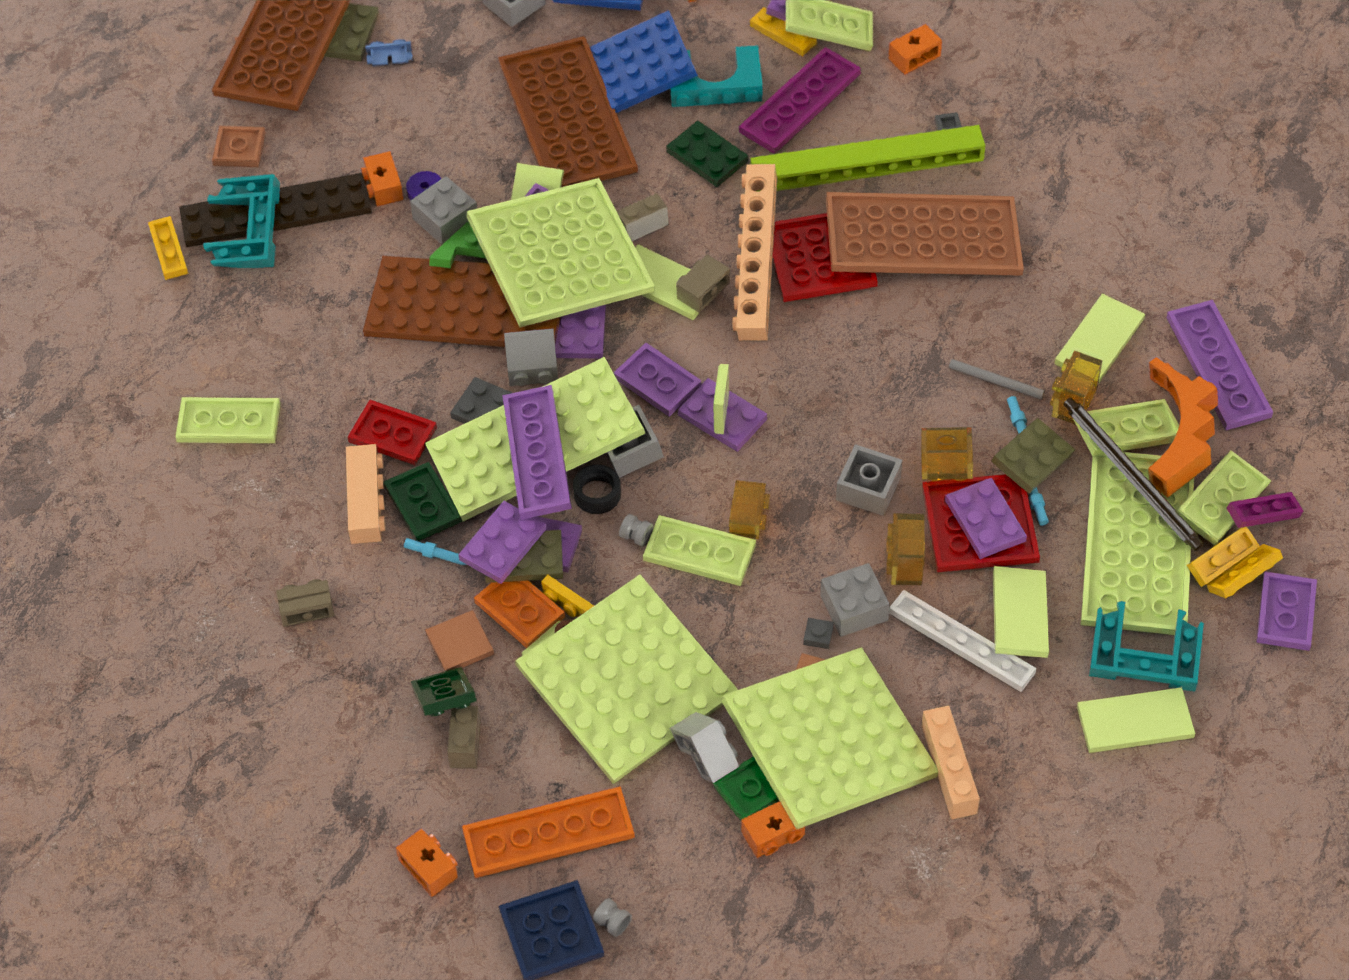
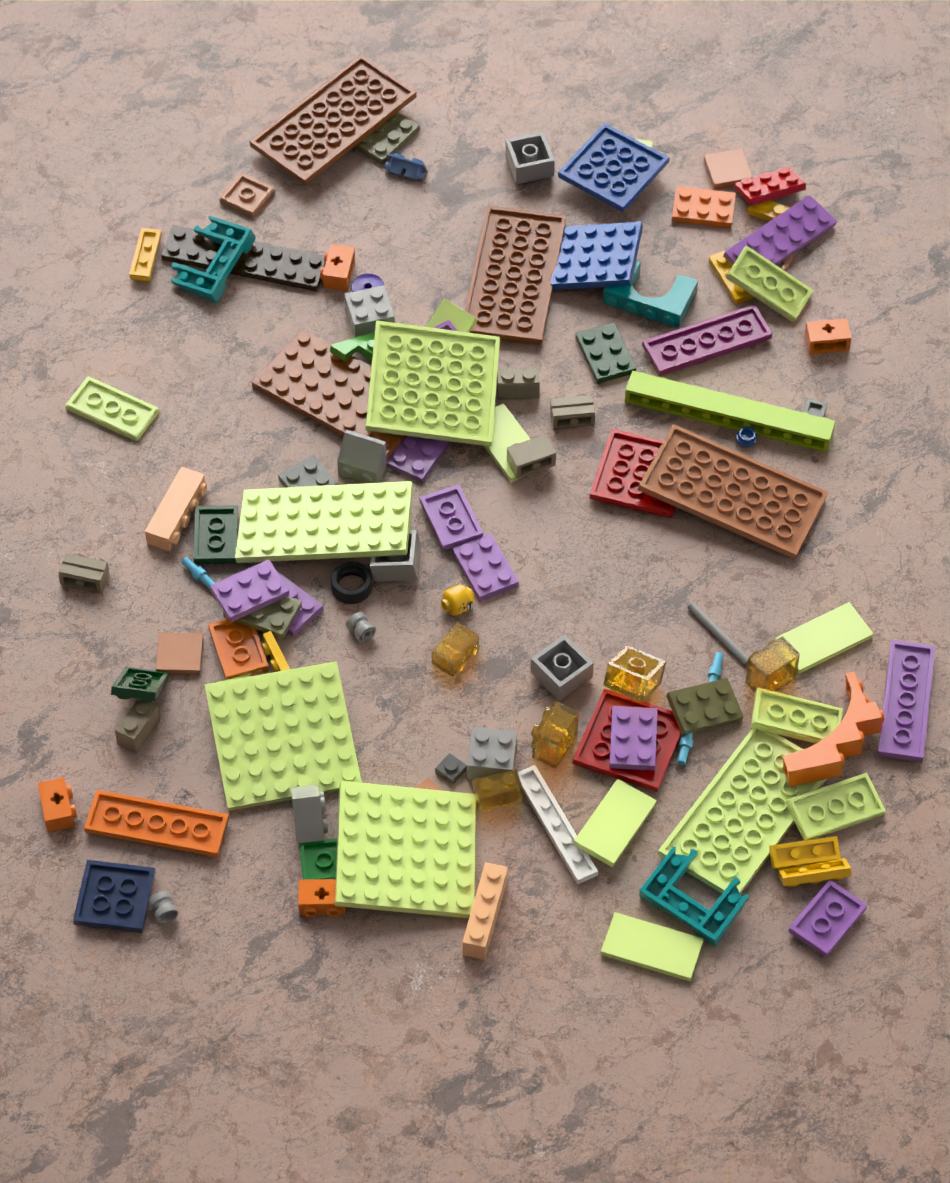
camera: 25 degrees right, 0 degrees up
(393, 431) = (226, 470): red plate -> none
(536, 452) = (313, 532): medium lavender plate -> none
(699, 550) = (401, 664): yellowish green tile -> none
(712, 223) = (572, 411): none -> dark tan brick
(718, 458) = (457, 600): none -> yellow head
(721, 398) = (482, 553): yellowish green tile -> none
(756, 325) = (566, 491): light nougat brick -> none
(883, 632) = (497, 790): none -> clear yellow brick
(899, 177) = (746, 437): none -> blue plate
(1135, 476) = (770, 756): piece -> none
(1264, 509) = (861, 831): magenta plate -> none

